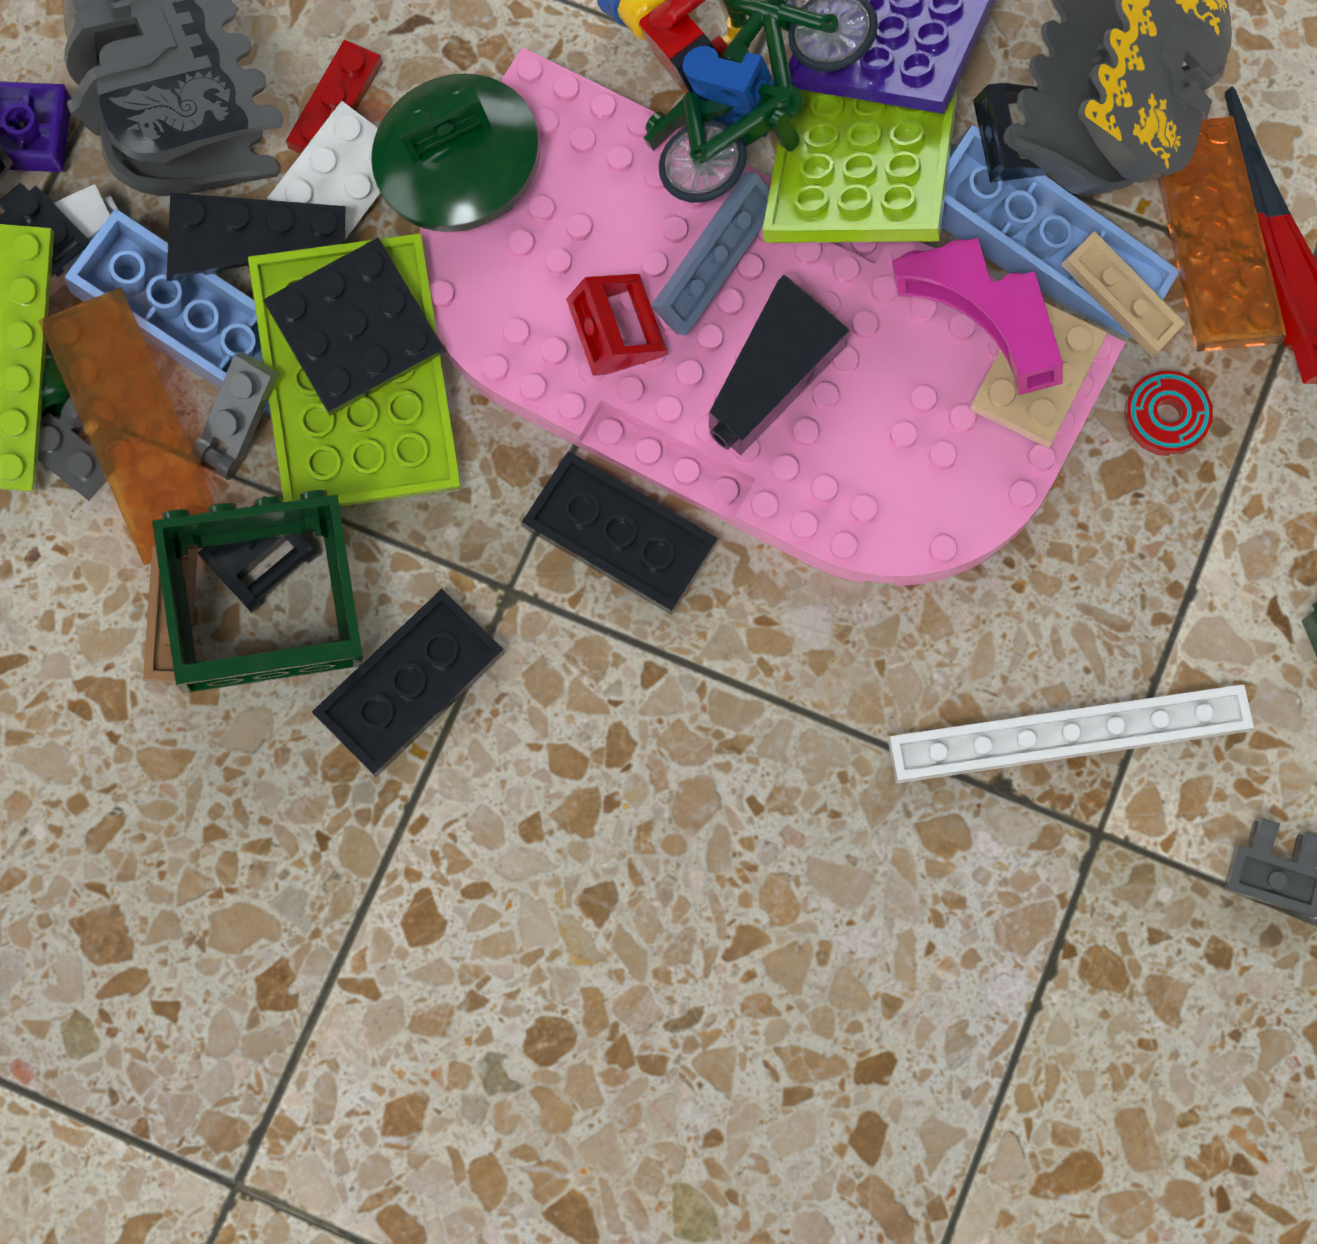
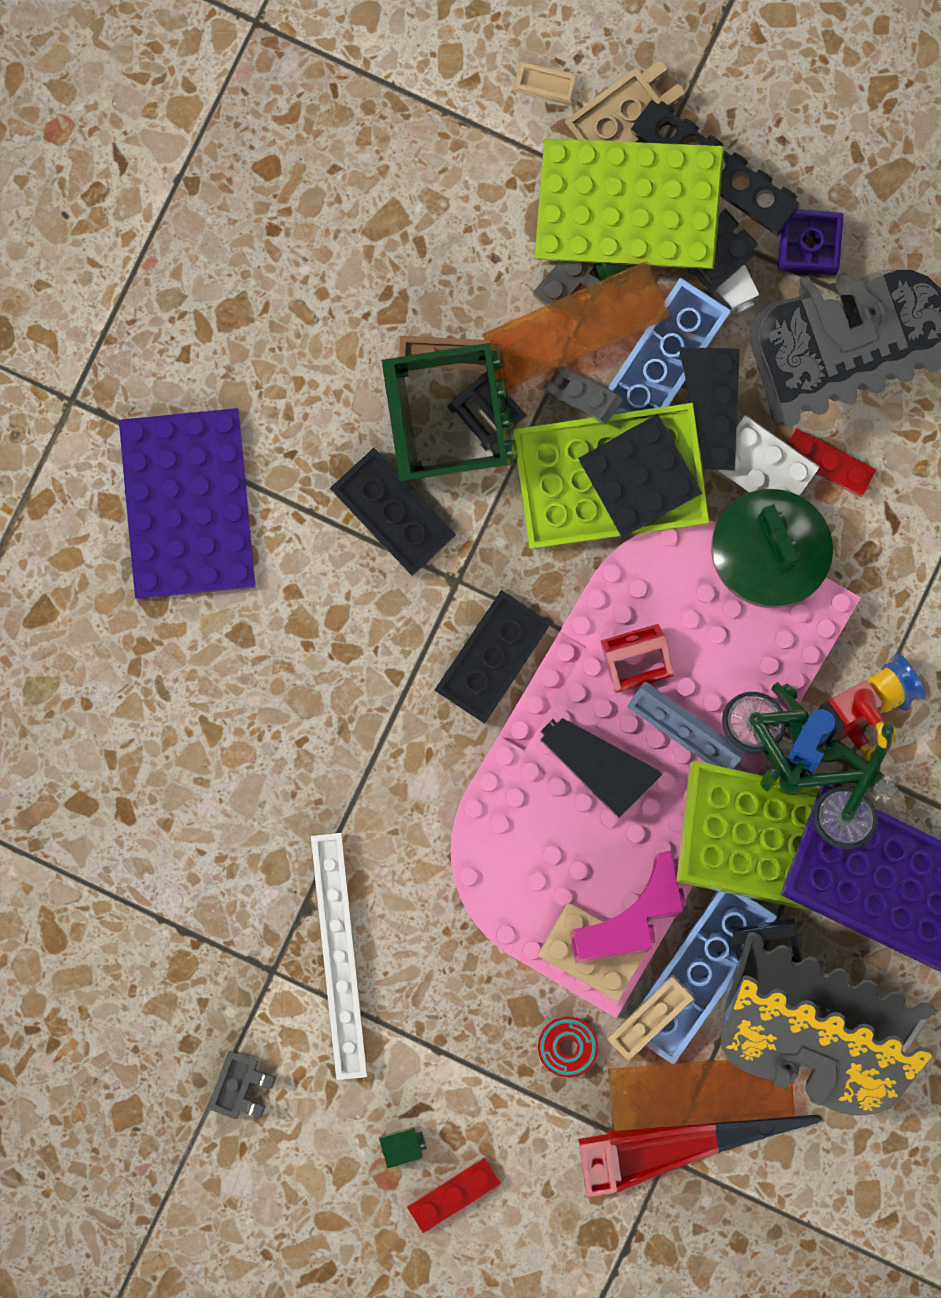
camera: 90 degrees right, 10 degrees up
(397, 994) = (187, 503): none -> dark purple plate

